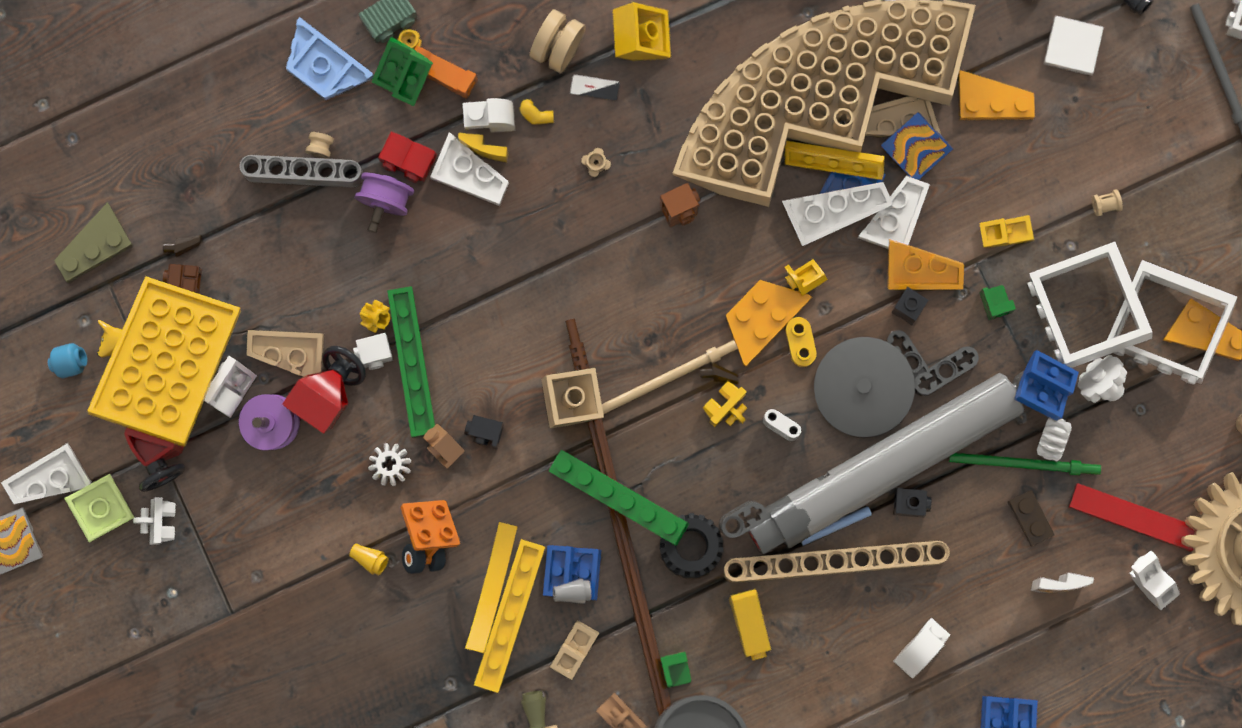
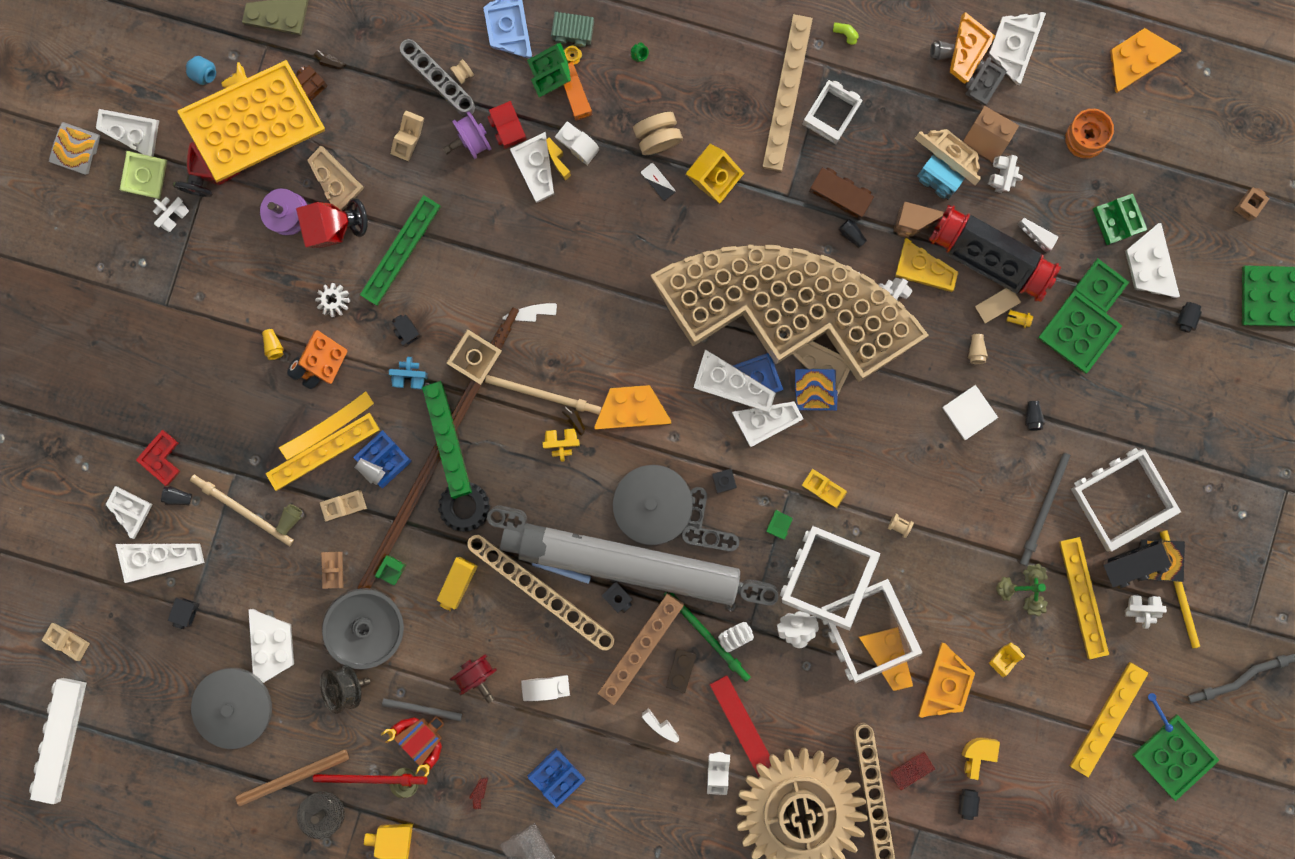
camera: 45 degrees right, 5 degrees up
(229, 386) = (278, 170): white plate -> none
(321, 249) = (407, 137): none -> tan slope
(374, 351) = (383, 224): white brick -> none
(375, 316) = (402, 203): yellow gear -> none
(443, 446) = (372, 316): medium nougat brick -> none
(516, 479) = (399, 375): none -> dark azure hips
(533, 115) = (605, 166): yellow arm -> none
(585, 313) = (529, 313): none -> white sticker
(598, 155) = (617, 222): tan plate -> none
(680, 205) = (641, 298): dark orange brick -> none
(781, 425) = (582, 483): white piece -> none
(800, 341) = (641, 444): yellow plate -> none
(805, 277) = (677, 408): yellow bracket -> none
(834, 160) = (758, 353): yellow tile -> none
(846, 695) = (474, 675): none -> dark red wheel
(921, 269) = (751, 465): light orange wing -> none
(977, 529) = (640, 648): none -> medium nougat brick
(992, 100) = (888, 400): light orange wing -> none
(1046, 385) = (757, 602): blue slope -> none

